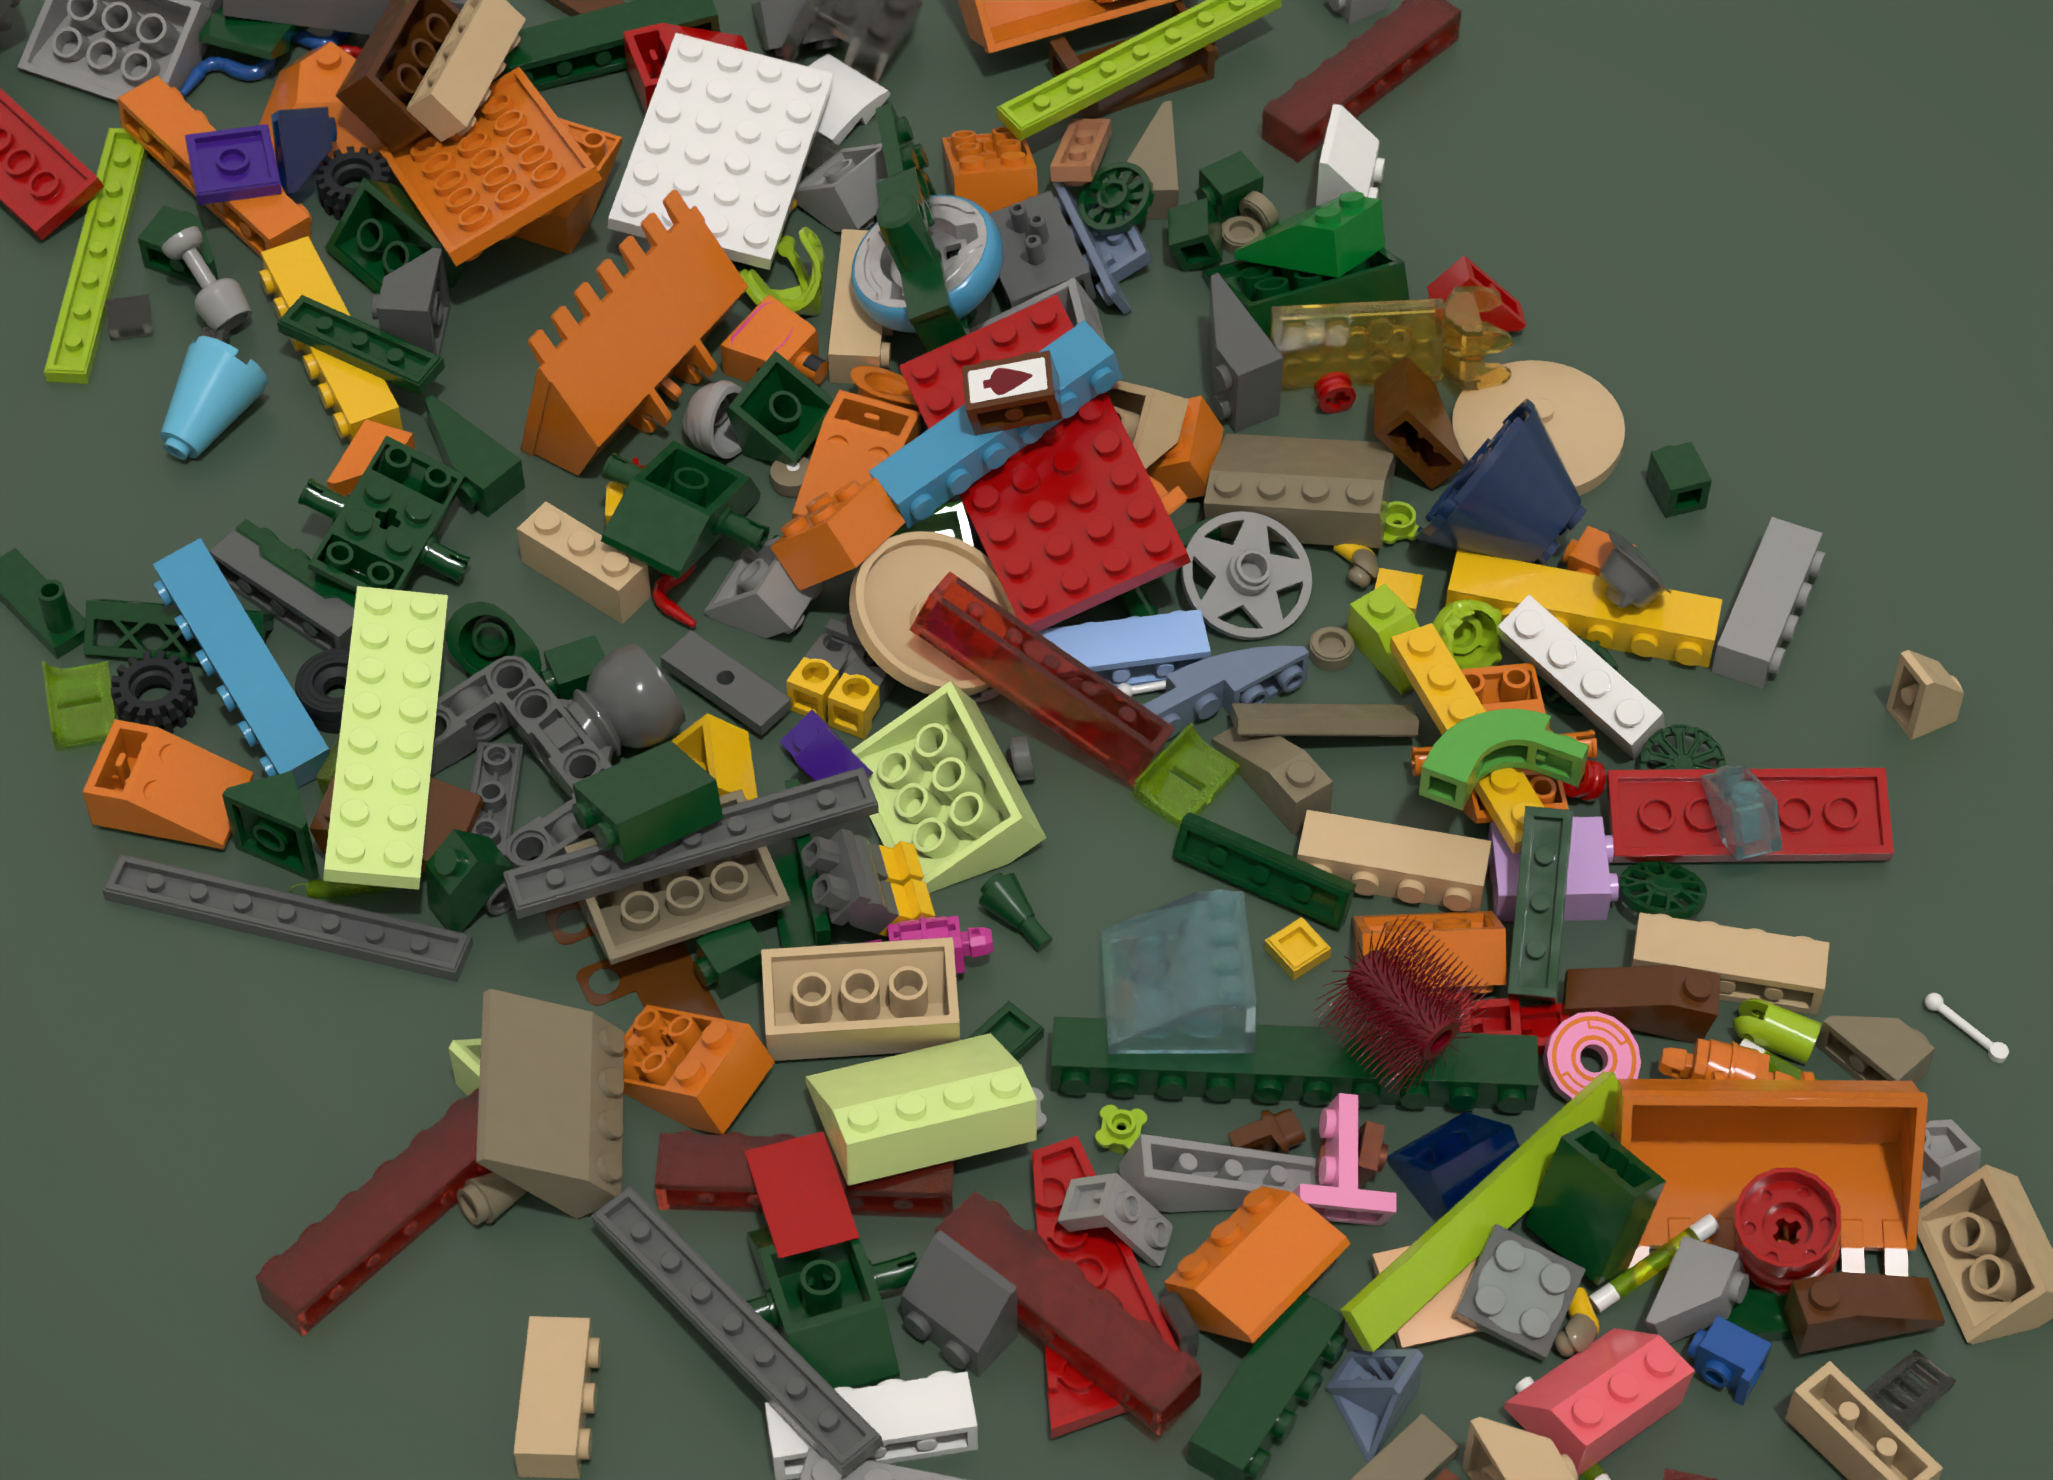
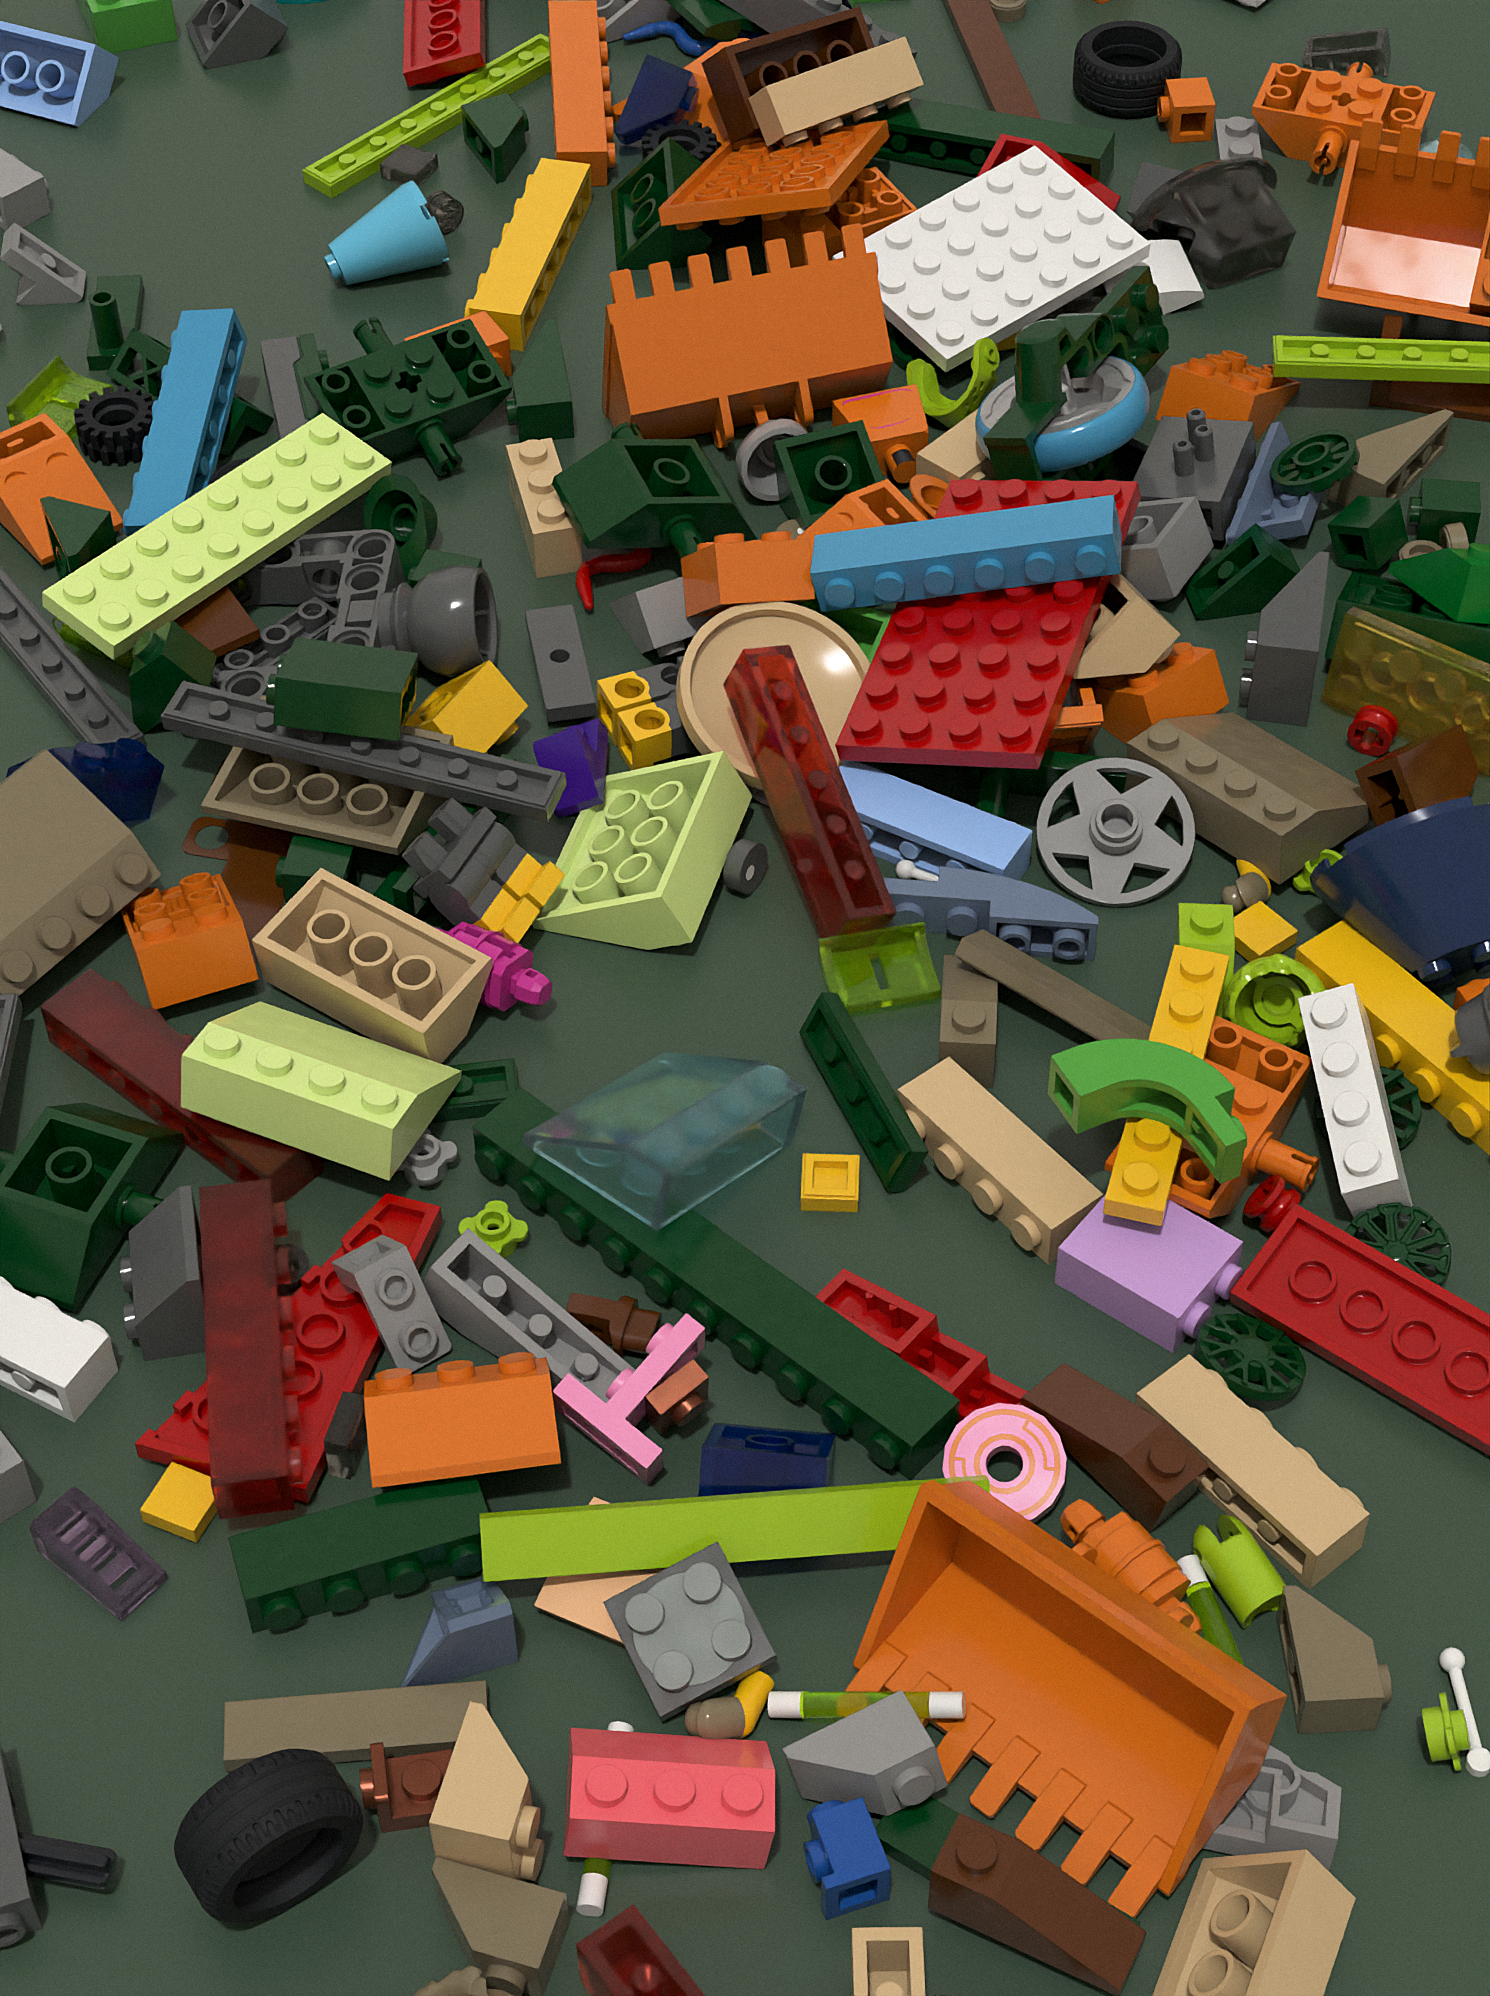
camera: 40 degrees right, 5 degrees down
(220, 301) = (478, 179): light grey piece -> none
(233, 164) = (583, 84): dark purple tile -> none
(361, 345) = (538, 255): dark green tile -> none
(415, 302) = (606, 241): dark grey slope -> none
(500, 967) = (116, 772): none -> clear blue slope
(801, 1194) = (128, 1091): red sticker -> none
(1008, 901) = (603, 974): dark green cone -> none
(1012, 392) = (982, 519): reddish brown brick -> none
(1081, 151) = (1325, 412): nougat plate -> none
(1113, 1445) = (181, 1503): none -> yellow tile
(1144, 321) = (1242, 576): none -> dark green slope
(1331, 648) = (1143, 945): dark tan tile -> none
(1402, 1004) = (813, 1263): dark red piece -> none
(1472, 936) = (945, 1261): orange slope -> none
(1540, 904) = (1081, 1276): dark green fence -> none
(1595, 1202) = (840, 1591): dark green brick -> none
(1743, 811) = (1395, 1325): clear light blue slope -> none
(1793, 1206) = (1012, 1757): red wheel -> none
(1973, 1046) = (1446, 1732): none -> lime plate

